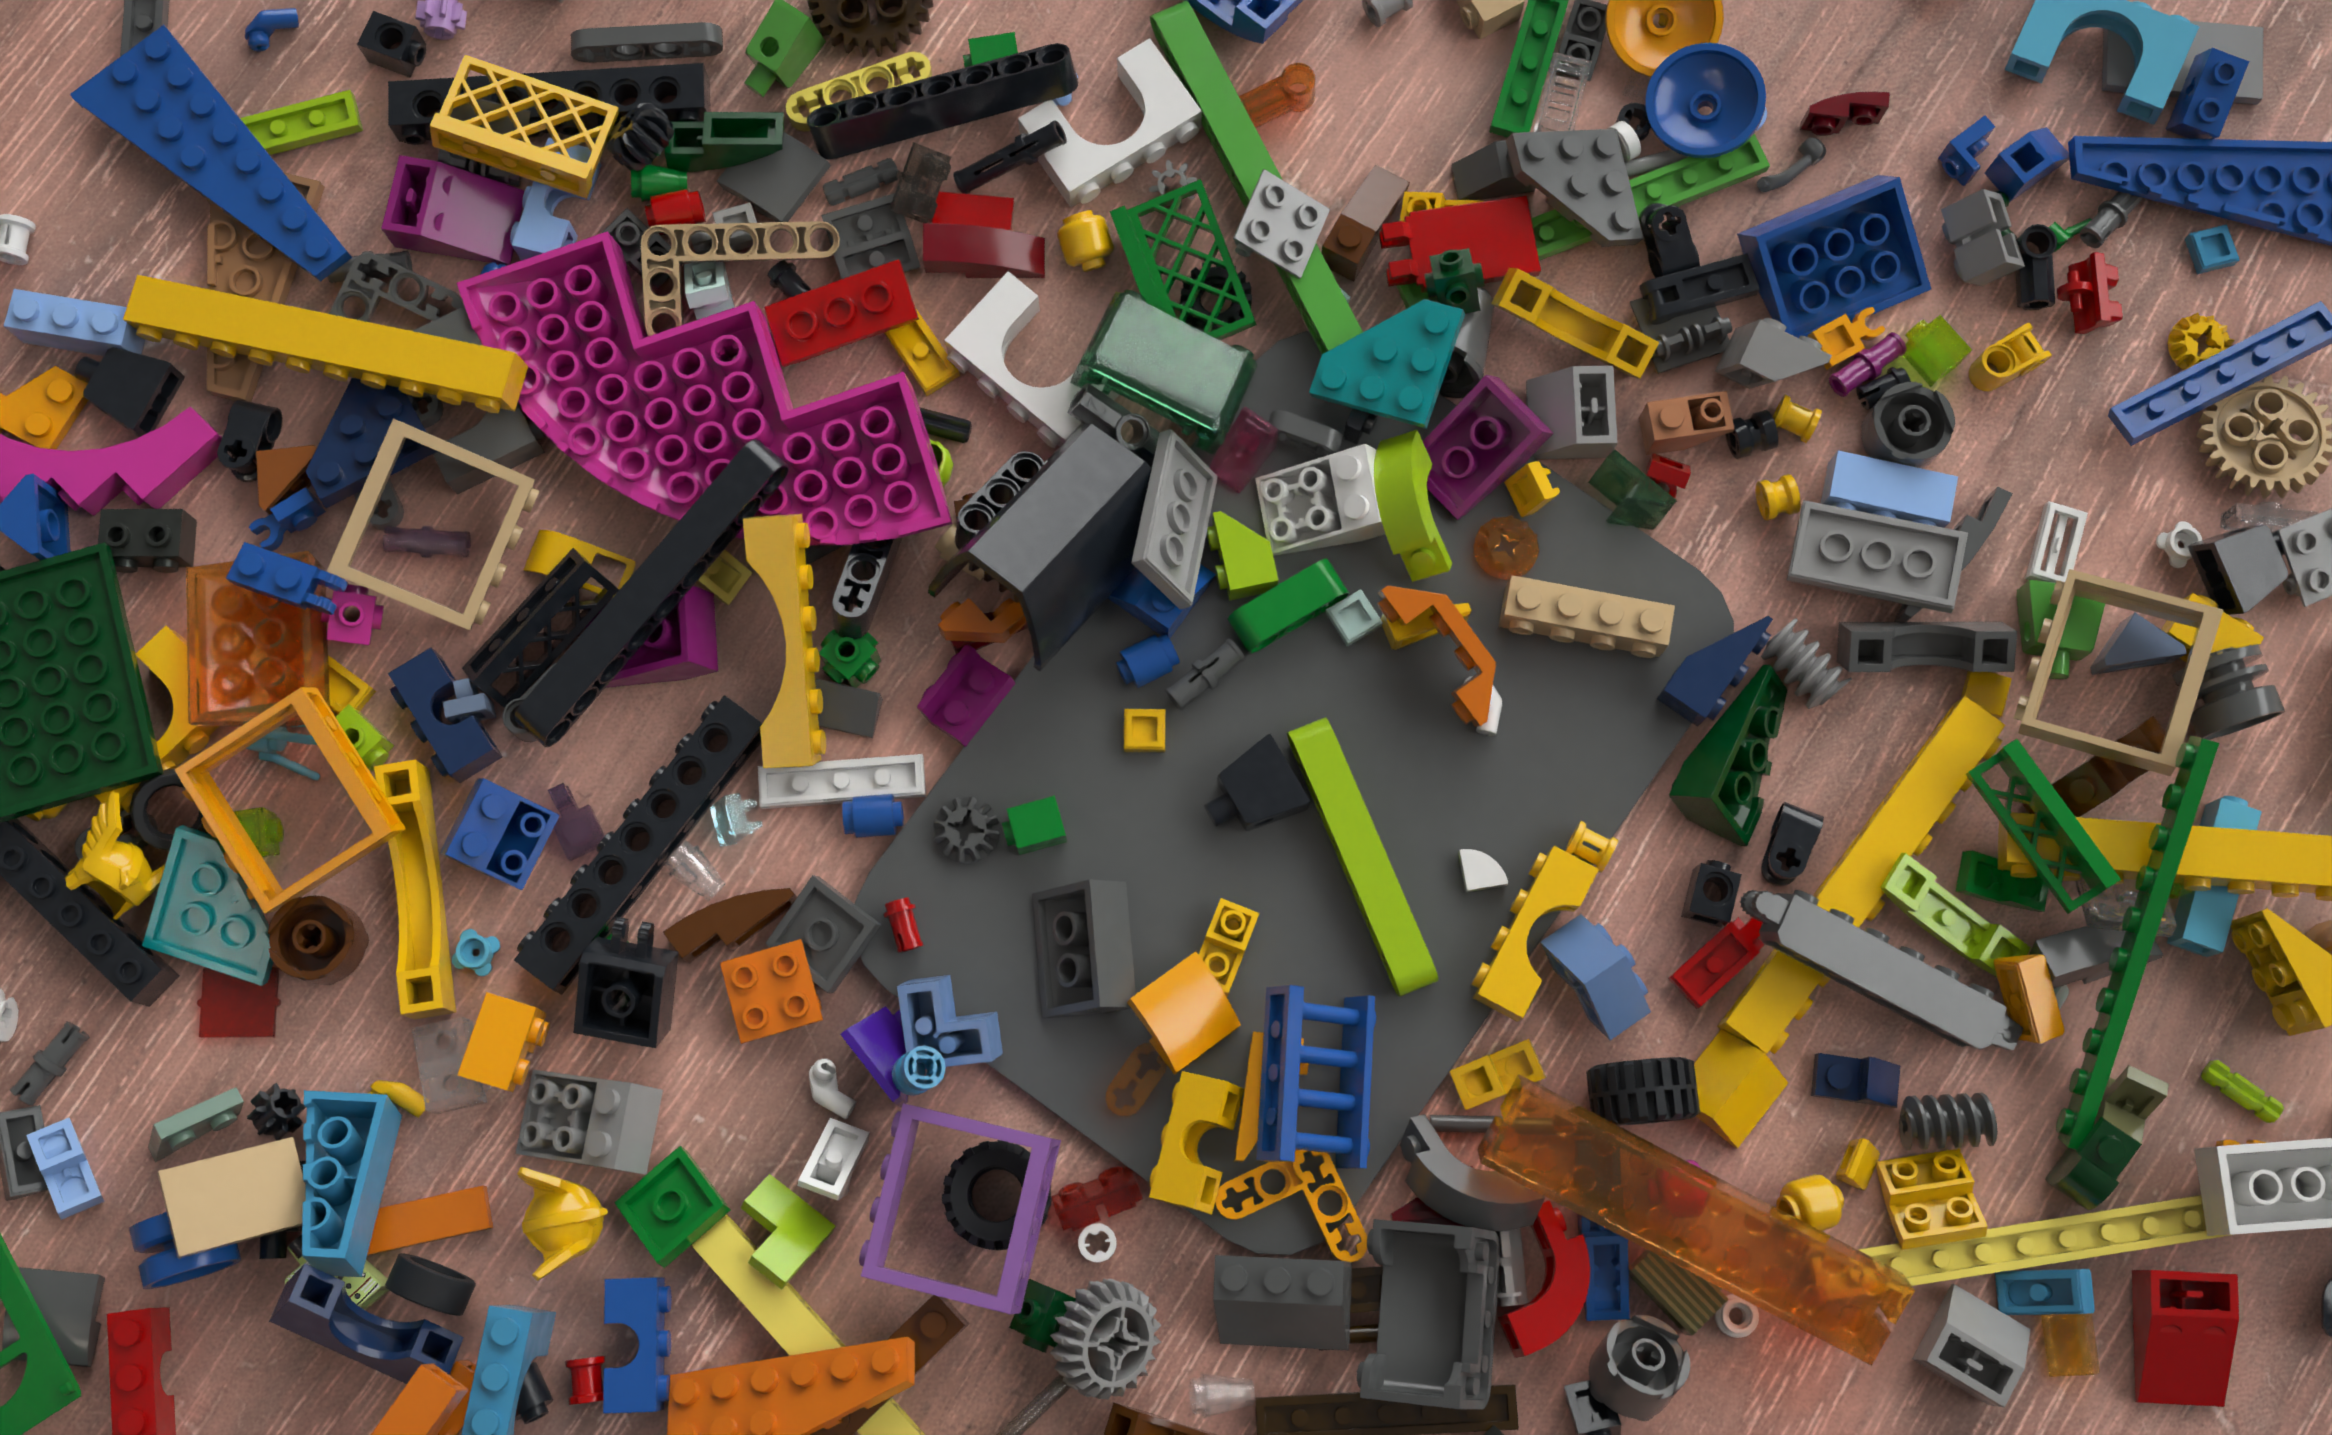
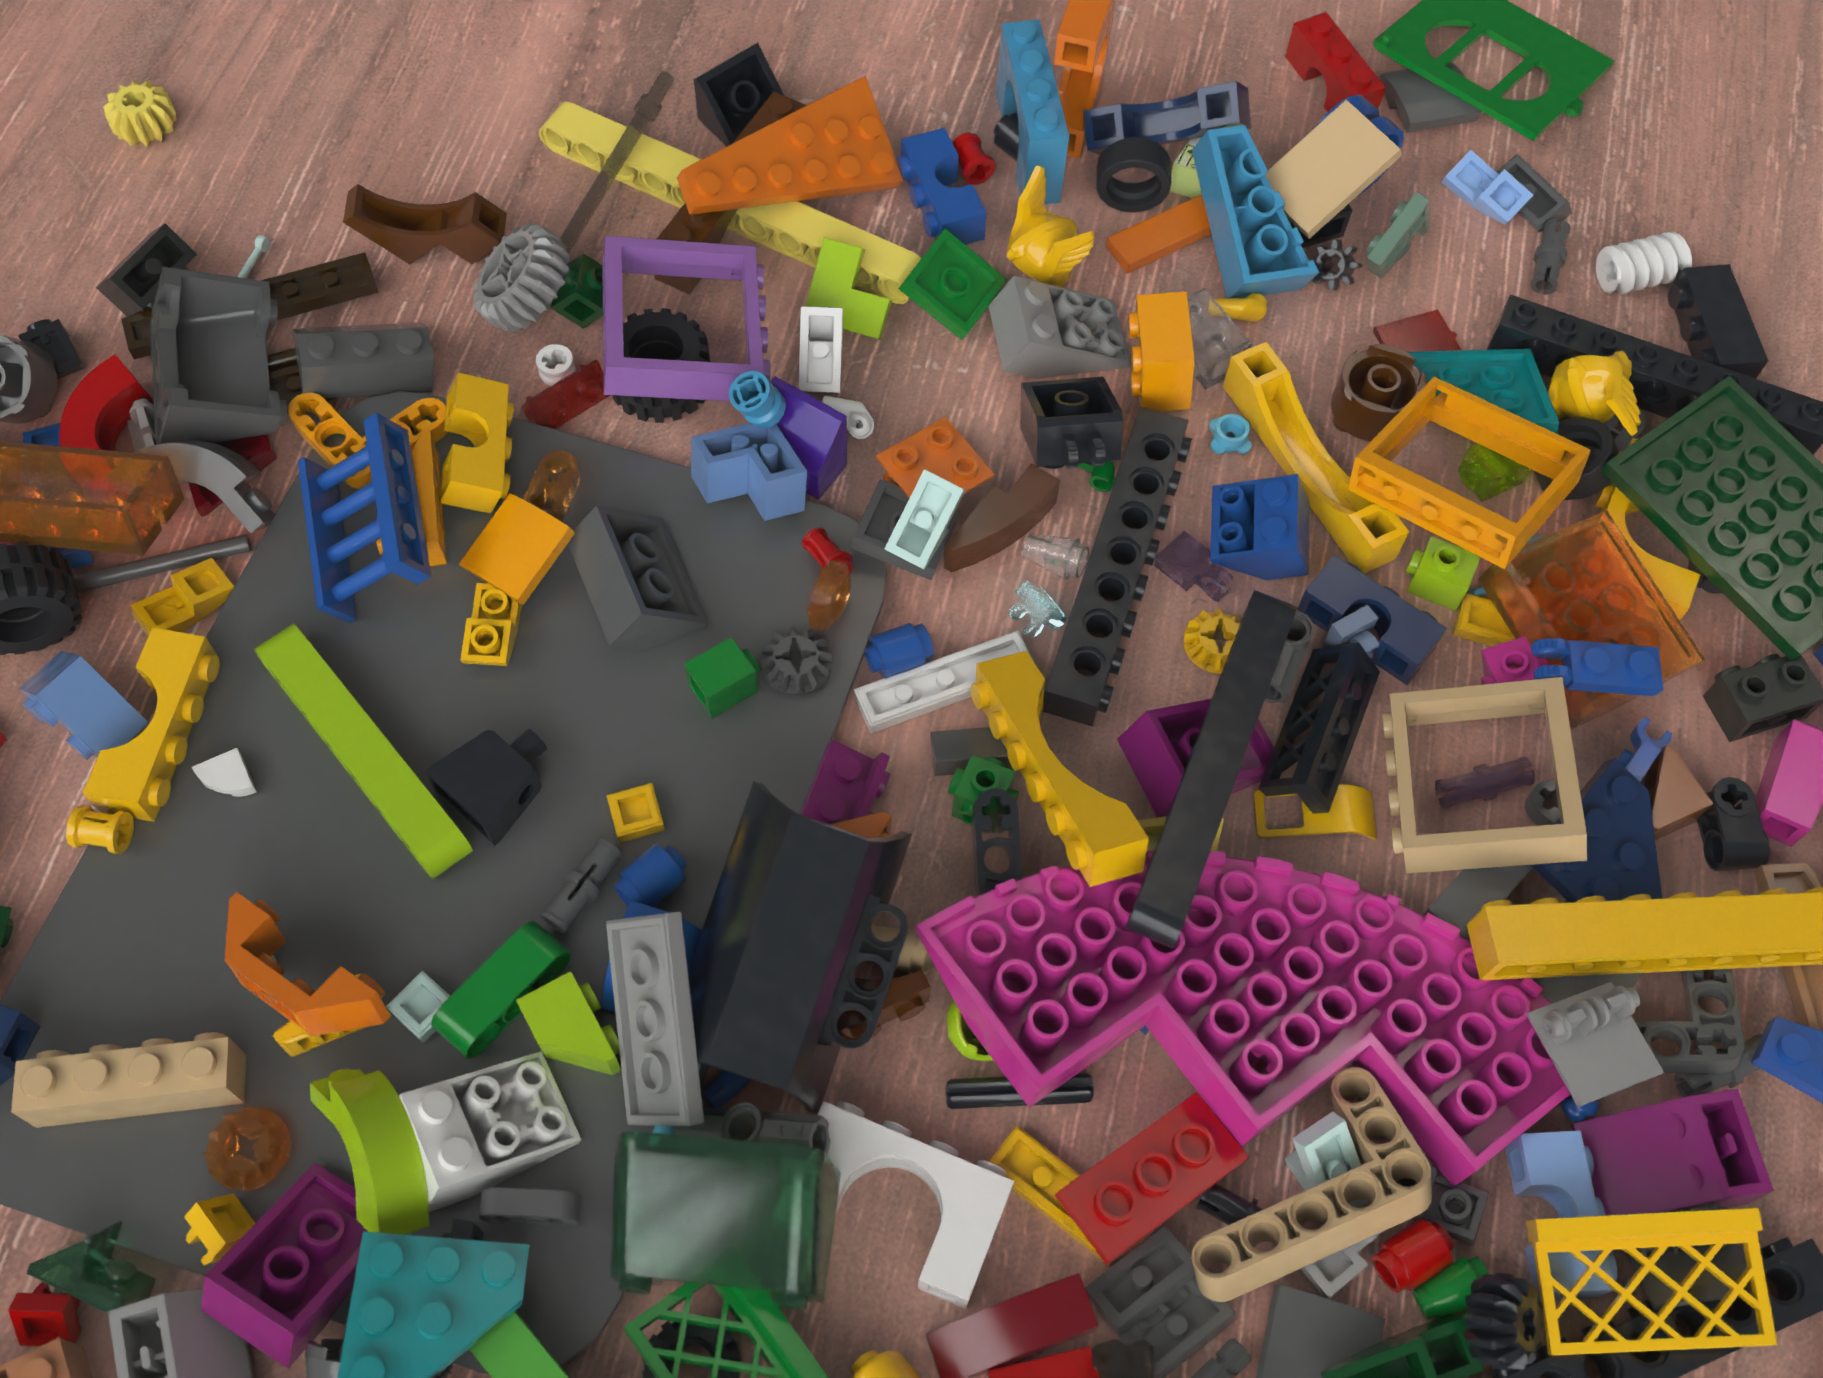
camera: 160 degrees right, 15 degrees down
(467, 291) = (1596, 1042): none -> light grey hinge
(591, 761) = (1198, 641): none -> yellow gear
(806, 912) = (925, 519): none -> light aqua slope
(917, 869) = (829, 595): none -> clear orange gear
(1219, 1394) = (409, 281): clear cone -> none
(1244, 450) = (591, 1160): clear pink slope -> none

